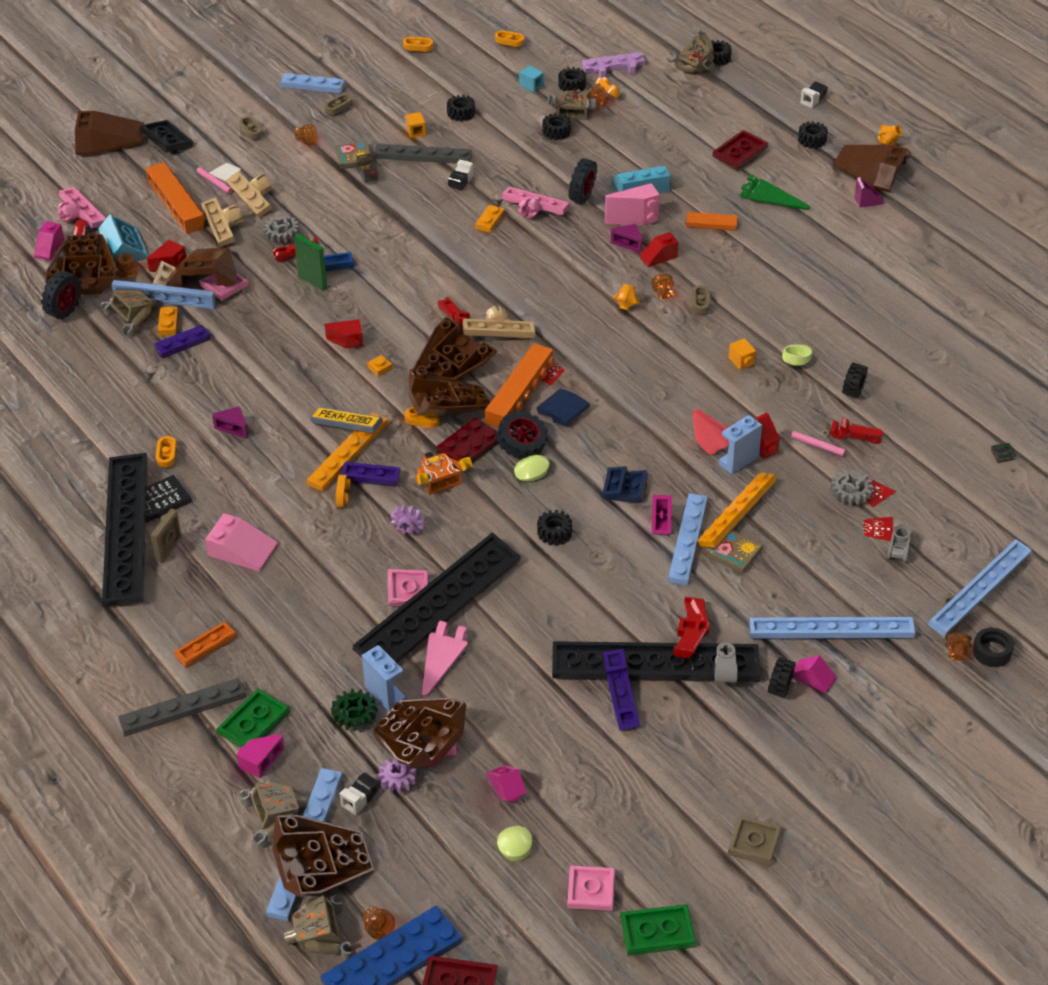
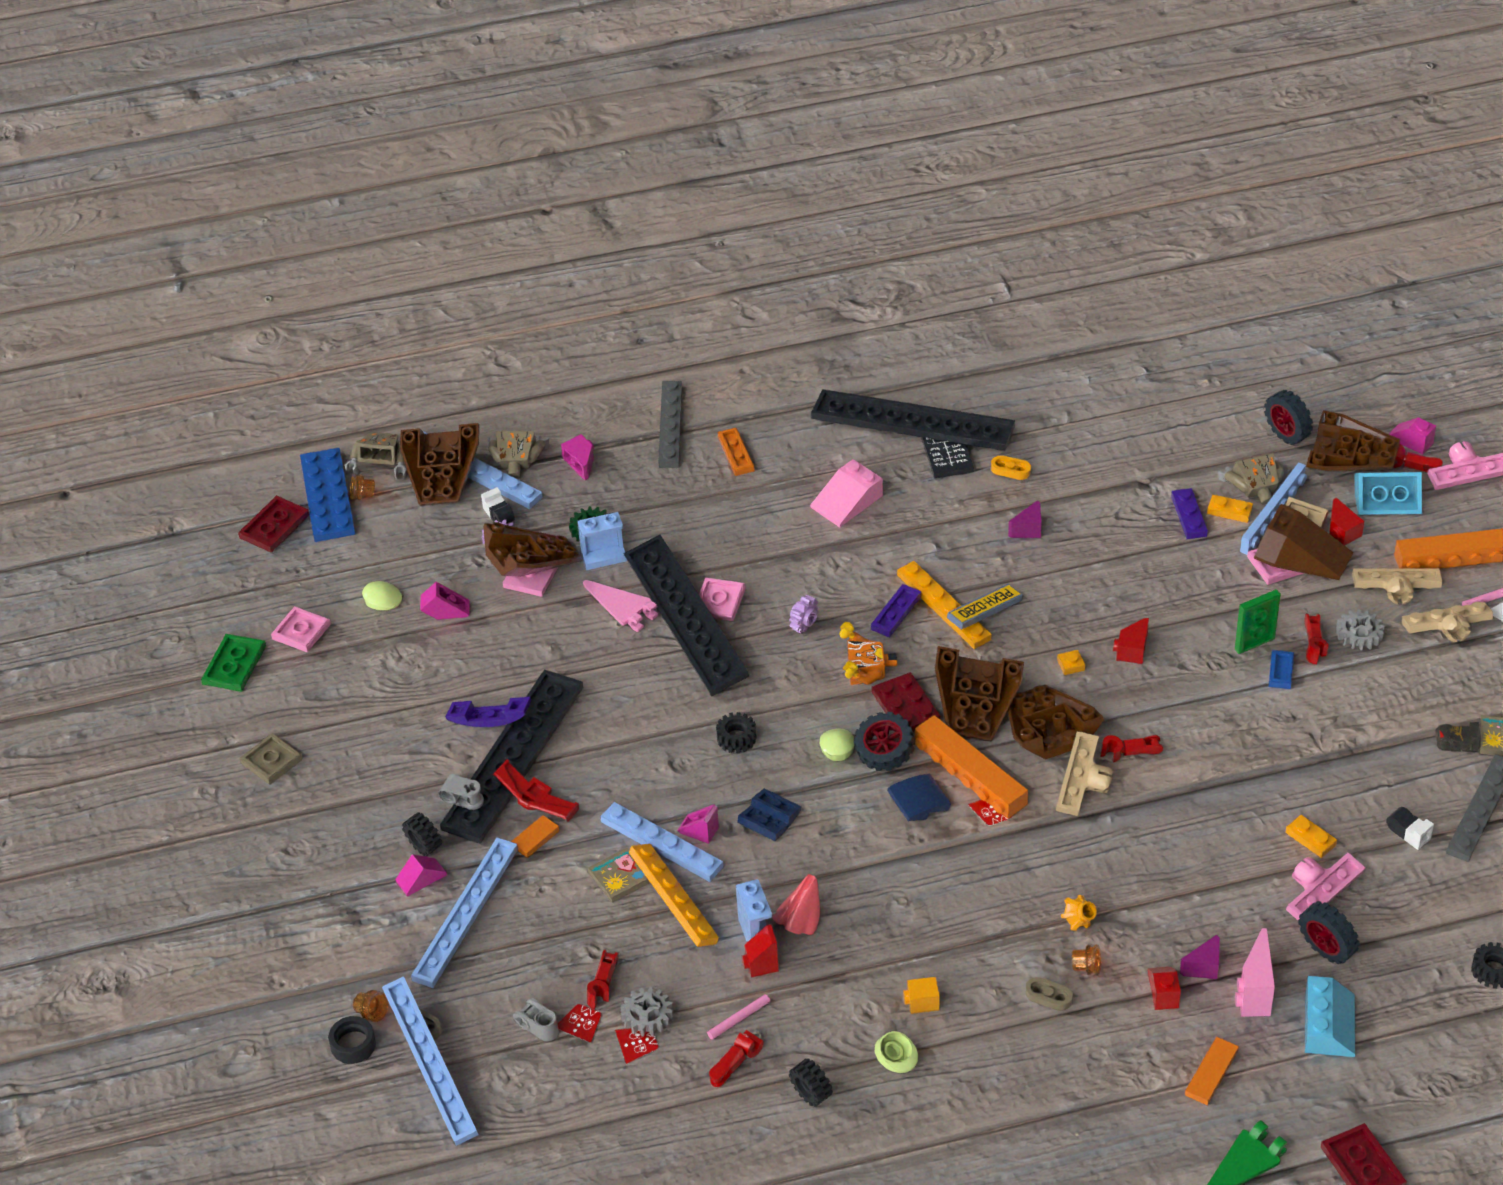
camera: 115 degrees right, 0 degrees up
(127, 266) = (1348, 489): clear orange piece -> none
(166, 536) = (876, 437): dark tan tile -> none
(253, 719) = (626, 464): green tile -> none
(342, 496) = (880, 580): light orange plate -> none
(729, 616) = (535, 836): none -> orange tile
(837, 523) = (602, 980): none -> red piece

